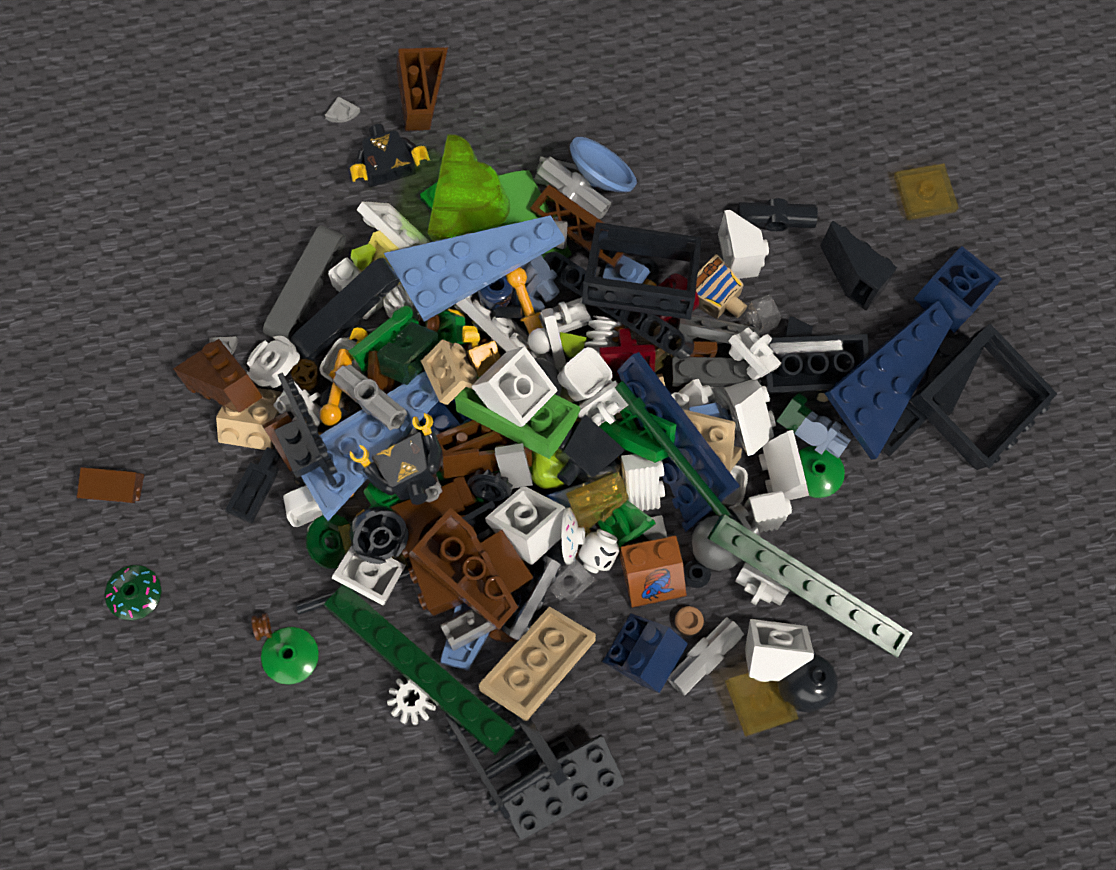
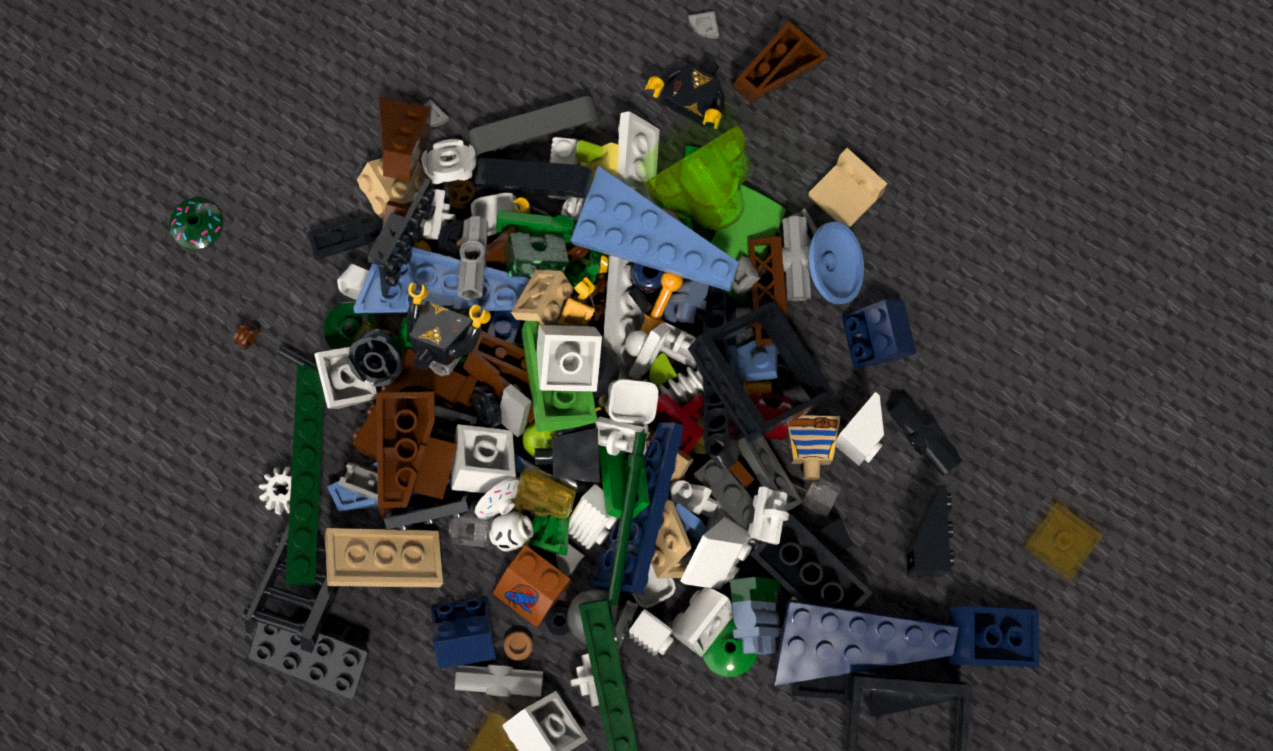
camera: 50 degrees right, 5 degrees up
(110, 485) = (257, 135): reddish brown hinge -> none
(299, 665) = (249, 386): green dish -> none
(330, 413) = (441, 240): light orange pin -> none
(553, 116) = (848, 189): none -> tan bracket
(676, 184) = (879, 334): none -> dark blue slope

